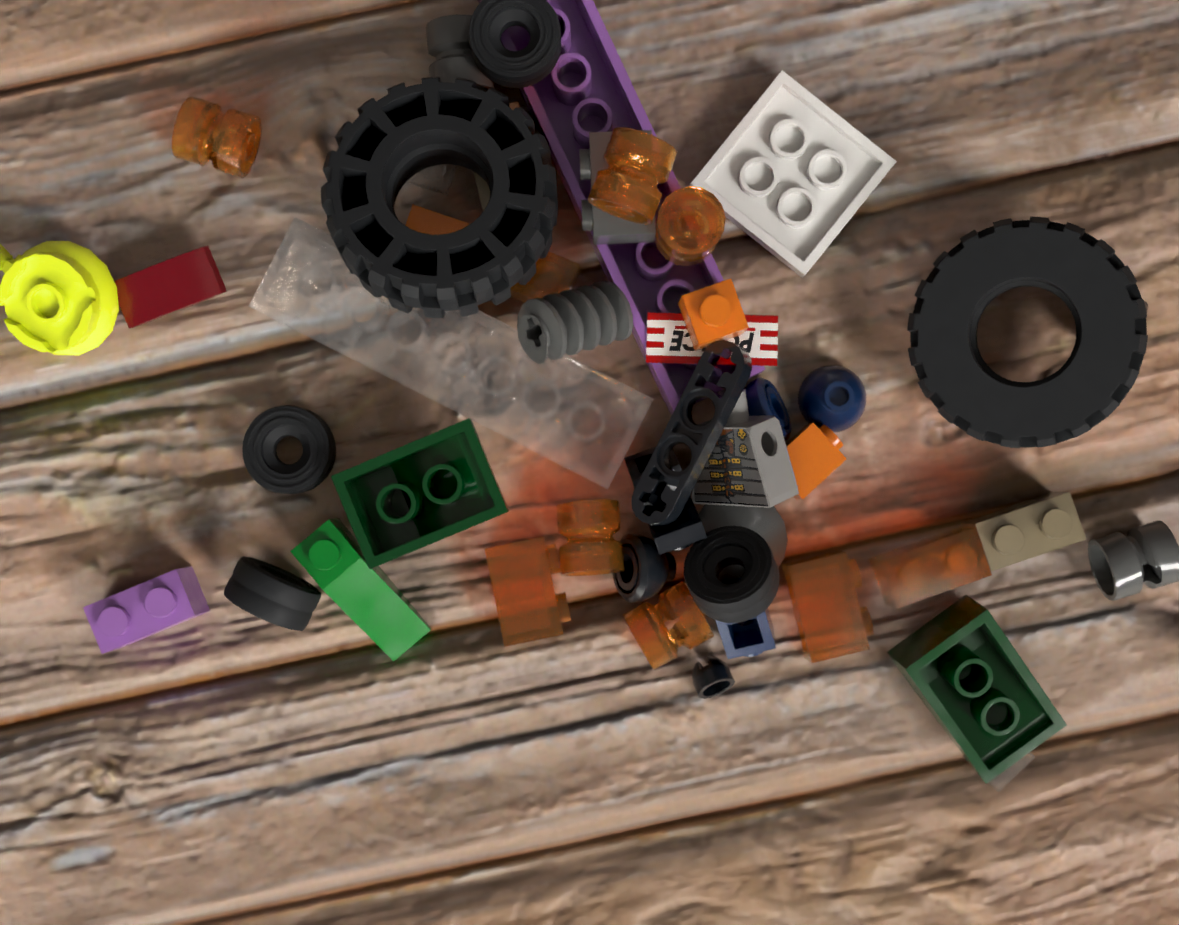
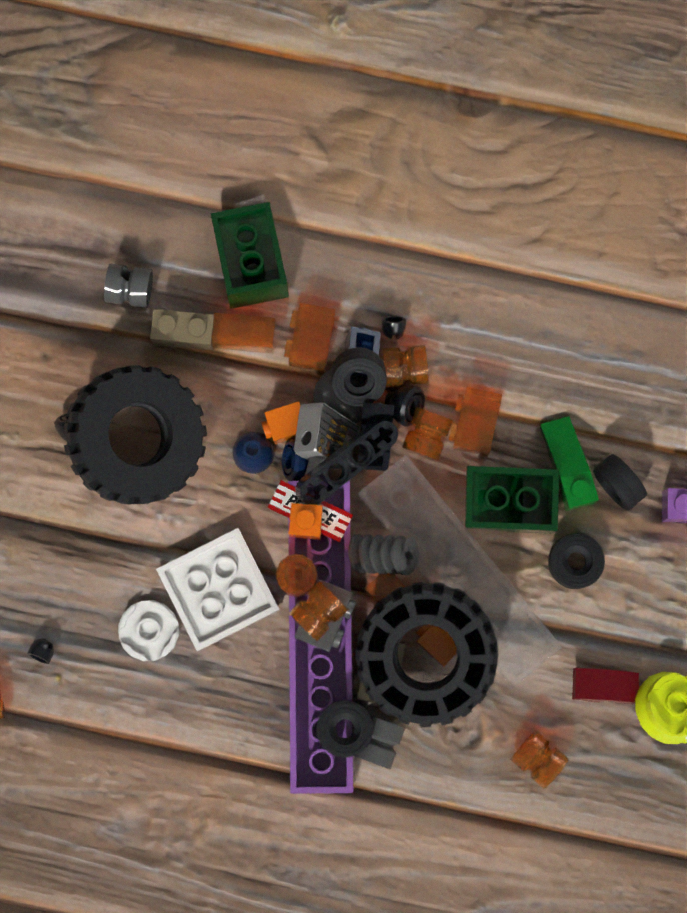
camera: 155 degrees left, 5 degrees down
(863, 73) = (148, 630): none -> white tile

